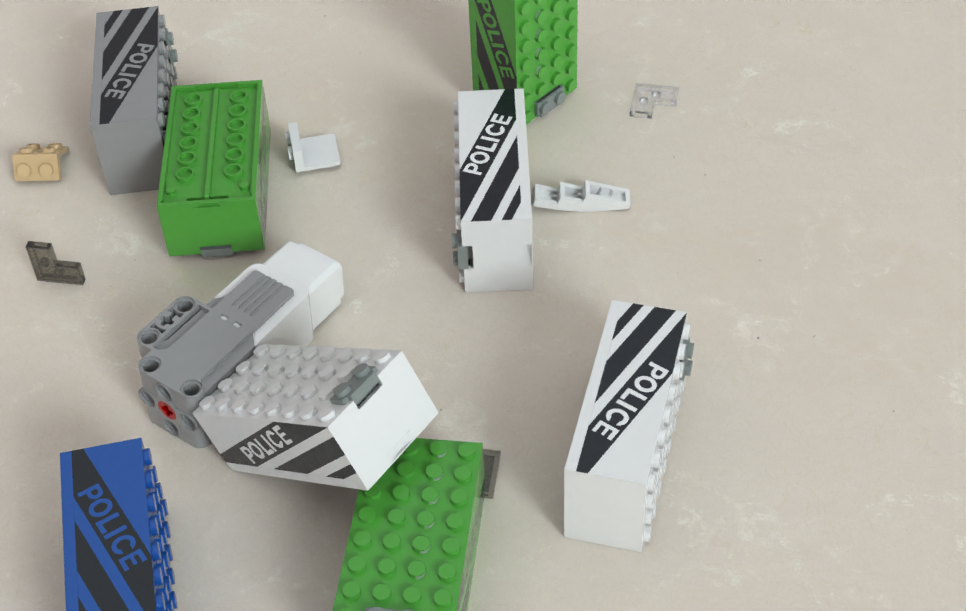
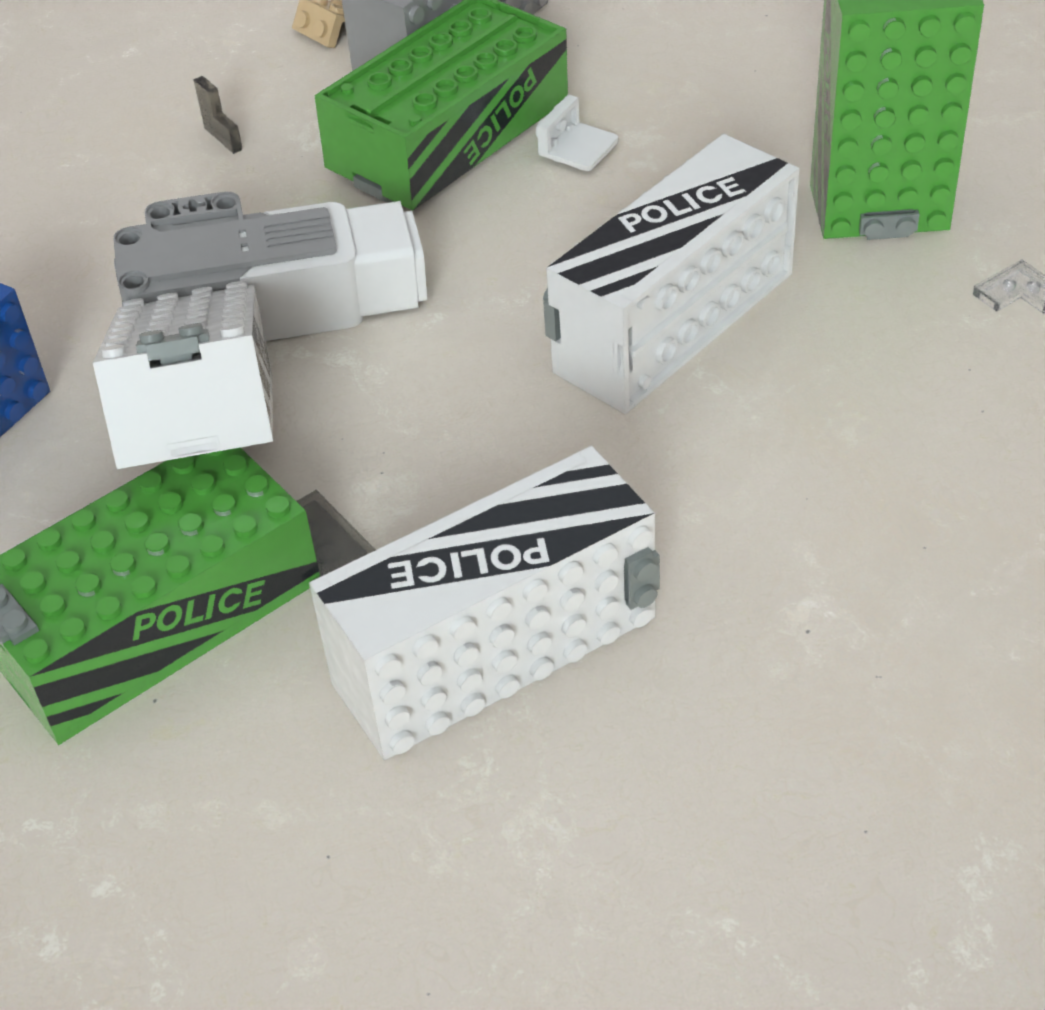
camera: 45 degrees right, 0 degrees up
(584, 198) = (797, 351): white slope -> none

